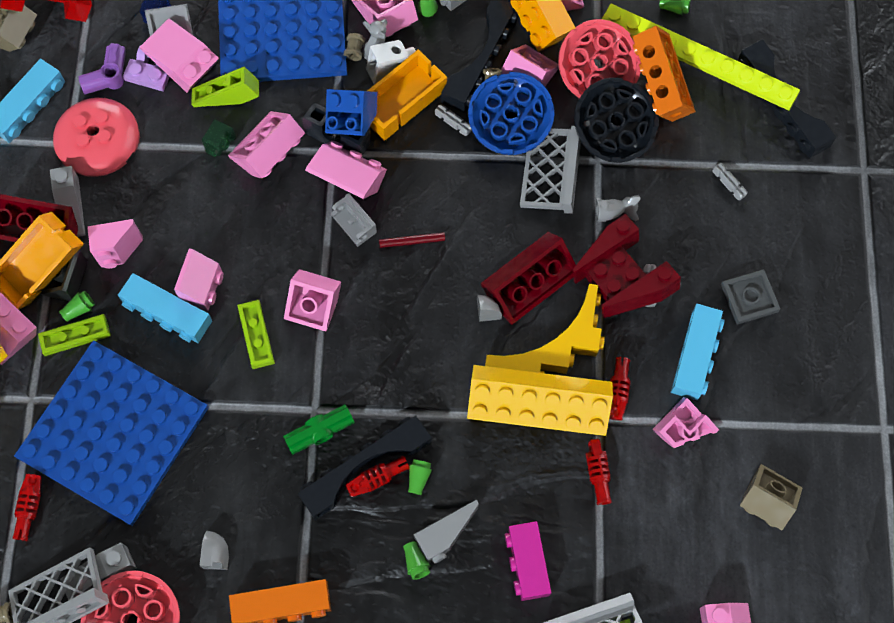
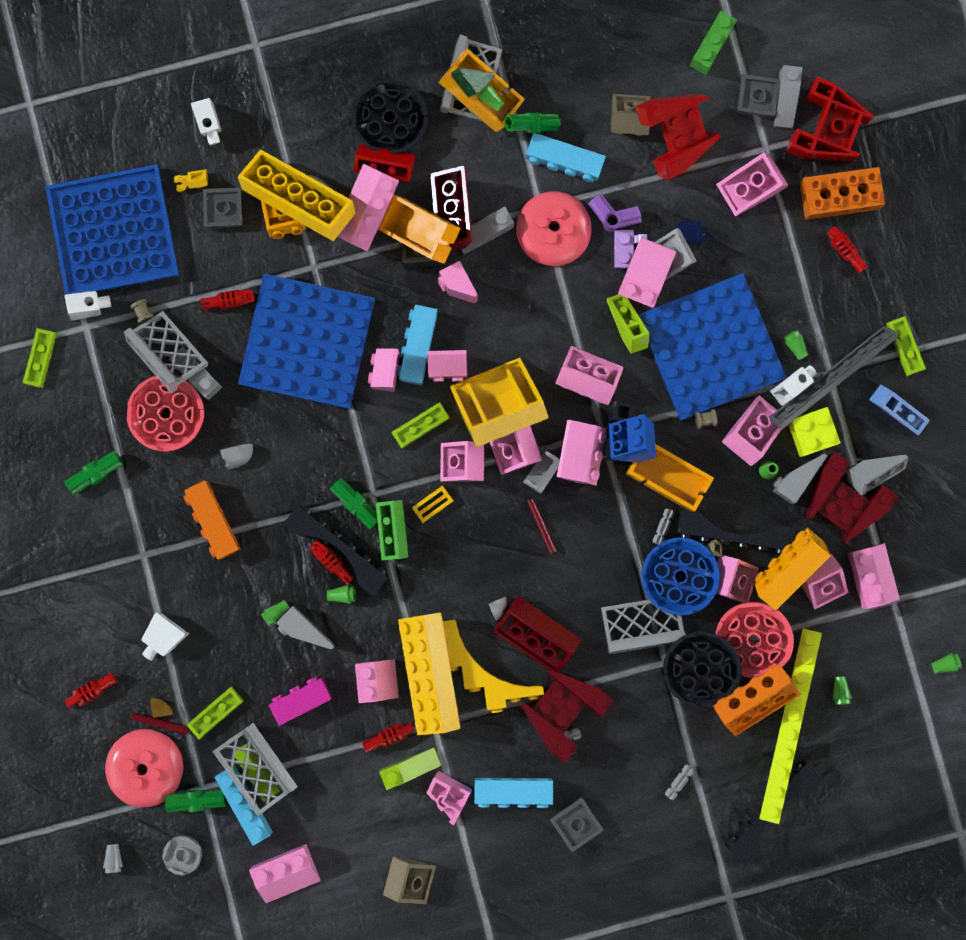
camera: 70 degrees right, 15 degrees up
(74, 334) = (375, 280): lime tile -> none
(77, 306) = (400, 274): bright green cone -> none
(178, 349) = (384, 369): none -> bright pink slope
(218, 138) = (580, 332): clear green brick -> none
(260, 237) = (499, 402): none -> yellow slope
(318, 241) = (516, 450): none -> bright pink slope
(354, 364) = (419, 513): none -> yellow tile
(362, 395) = (392, 530): none -> bright green brick
(377, 30) = (714, 437): light grey animal -> none
(385, 58) = (694, 449): white torso -> none
(530, 467) = (376, 681): none -> bright pink slope
(613, 208) = (619, 686): light grey animal -> none
(621, 389) = (462, 736): red hinge -> none
(642, 460) = (409, 768): none -> lime slope

